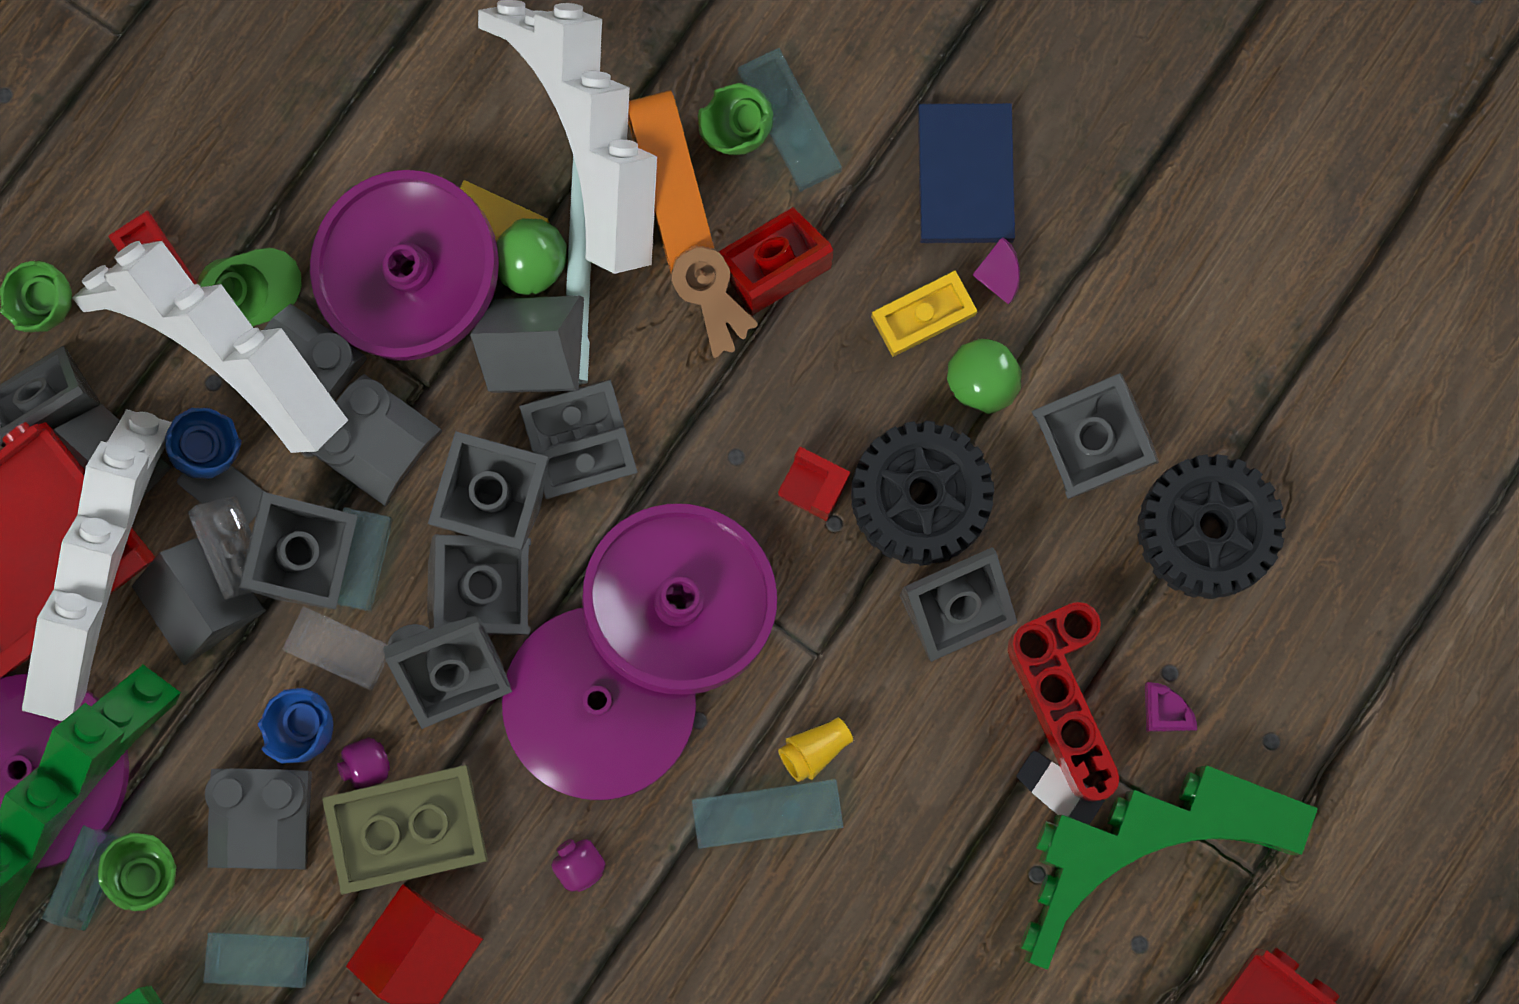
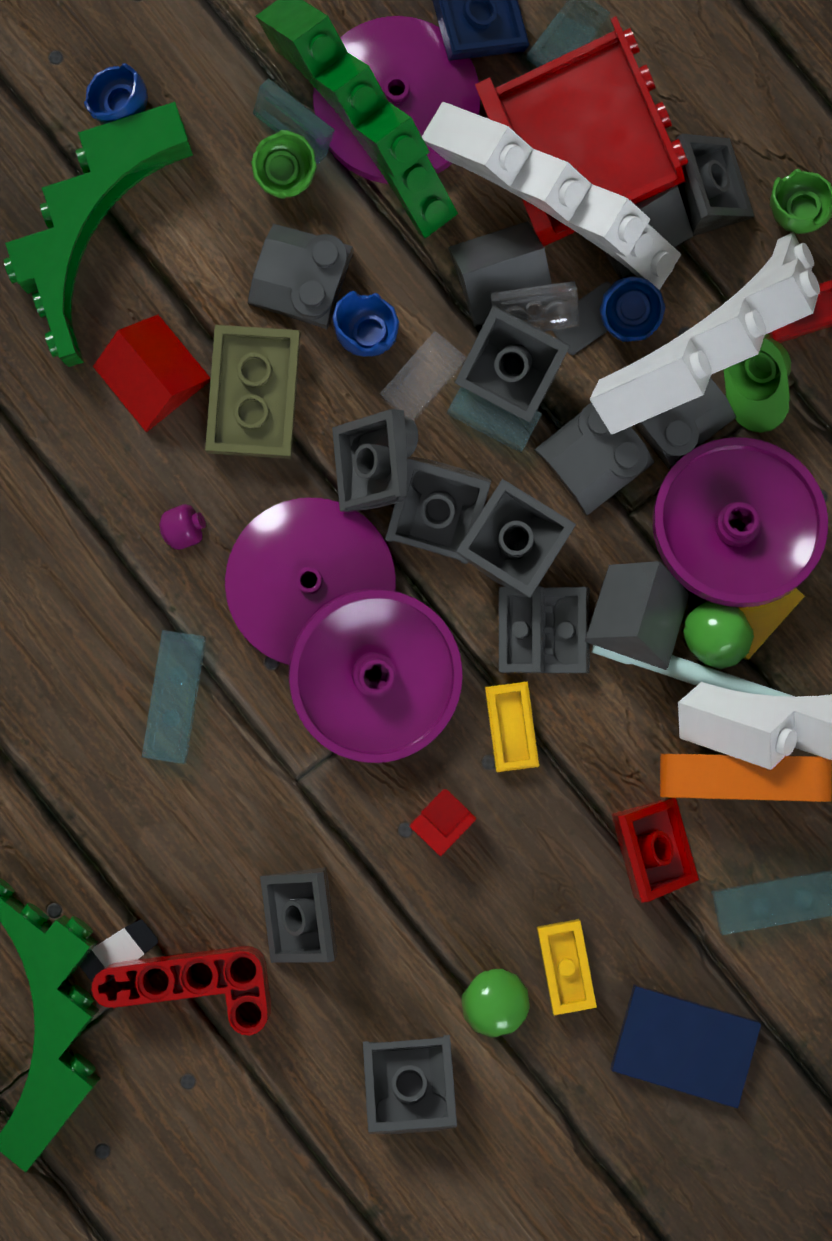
camera: 110 degrees right, 5 degrees up
(256, 959) = (185, 244): clear light blue tile -> none
(364, 763) = (320, 373): magenta piece -> none
(691, 443) = (511, 727): none -> yellow tile
(702, 279) = (652, 778): medium nougat piece -> none
(736, 119) = (791, 852): bright green hair -> none
(814, 749) = (214, 752): yellow cone -> none
(927, 456) = (399, 949): black wheel -> none
(1000, 271) = (585, 1048): magenta tile -> none
(1167, 710) = (155, 1068): magenta tile -> none
(1239, 503) = (292, 1195): black wheel -> none

